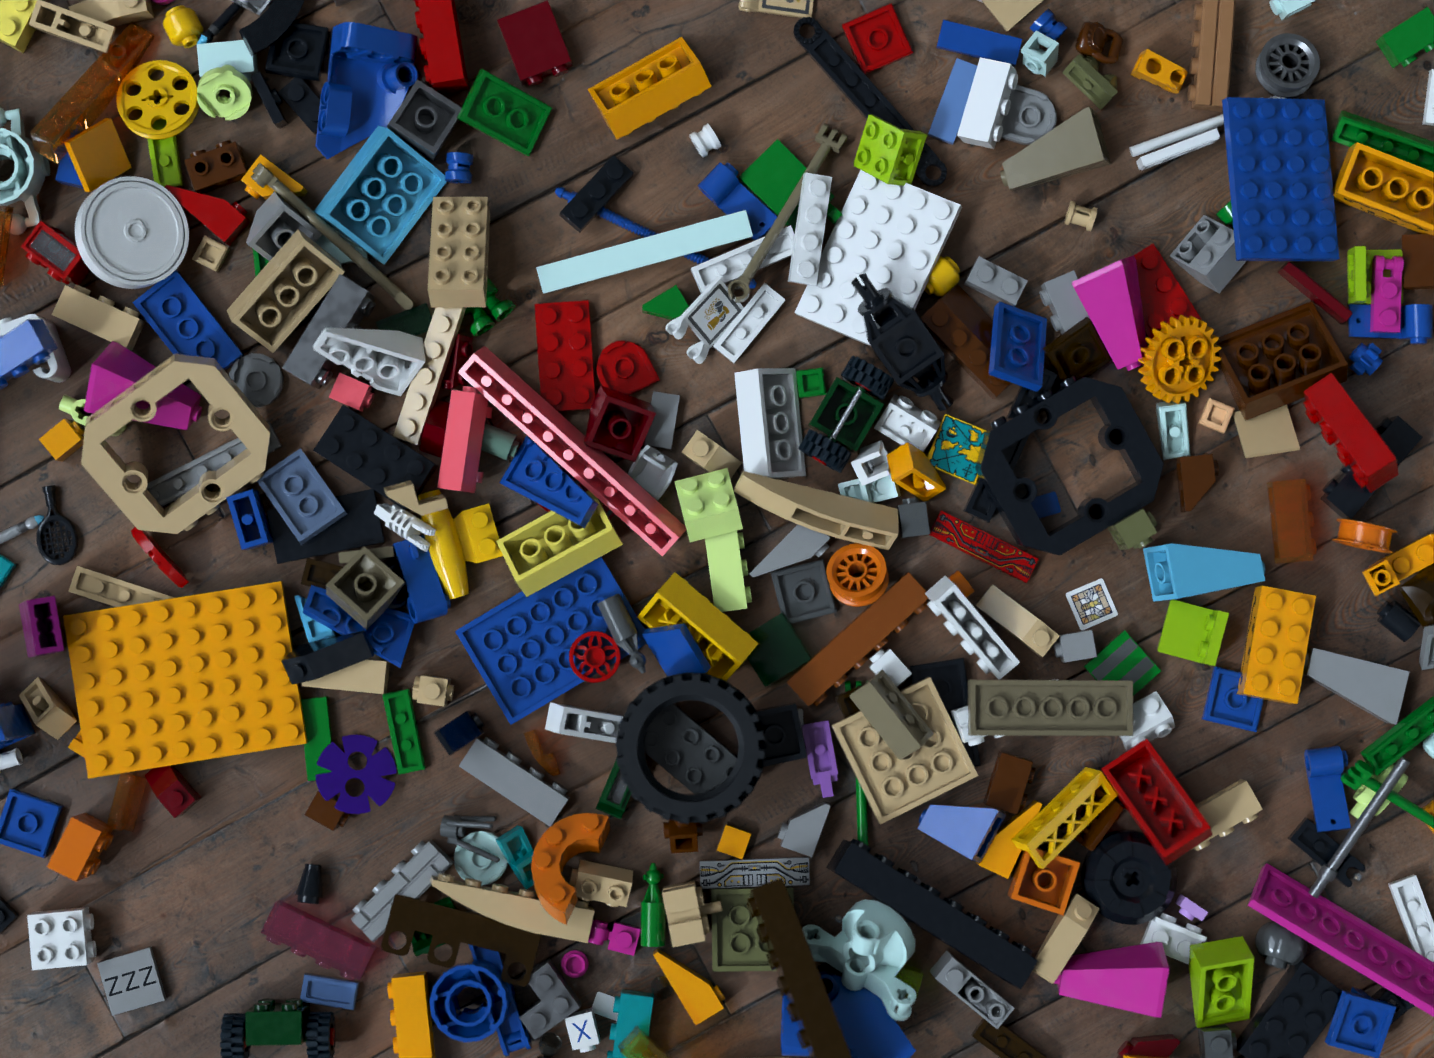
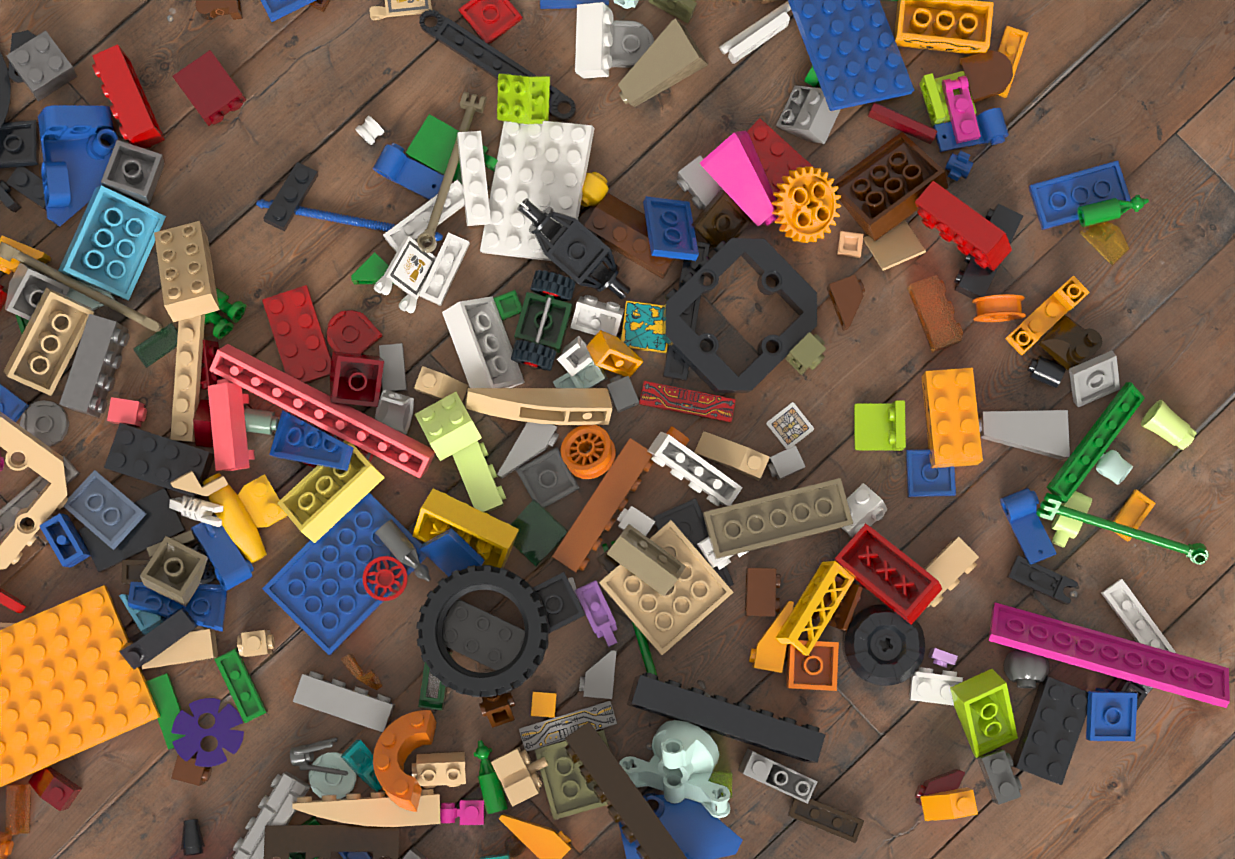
camera: 20 degrees left, 5 degrees down
(381, 356) = (141, 374): white wedge -> none
(459, 167) = (171, 204): blue wheel -> none
(460, 732) = (286, 672): black slope -> none
(504, 112) = (197, 149): green tile -> none
(574, 963) = (435, 845): dark pink plate -> none
(582, 722) = (387, 637): white slope -> none
(644, 251) = (342, 233): light aqua tile -> none
(649, 88) = (313, 100): light orange slope -> none
(953, 102) = (565, 48): medium blue tile -> none
(962, 828) = (732, 639): slope -> none
(995, 282) = (638, 182): light grey brick -> none
(1046, 505) = (730, 353): blue sticker -> none
(1064, 937) = (843, 709): tan slope -> none
(1080, 216) = (694, 111): tan bush -> none
(1119, 978) = (897, 732): dark pink slope -> none
(1123, 661) = (829, 464): tile -> none
(1173, 429) = (817, 264): light aqua slope -> none
(1192, 570) = (867, 373): medium azure slope -> none
(1329, 871) = (1048, 595): flat silver bar -> none

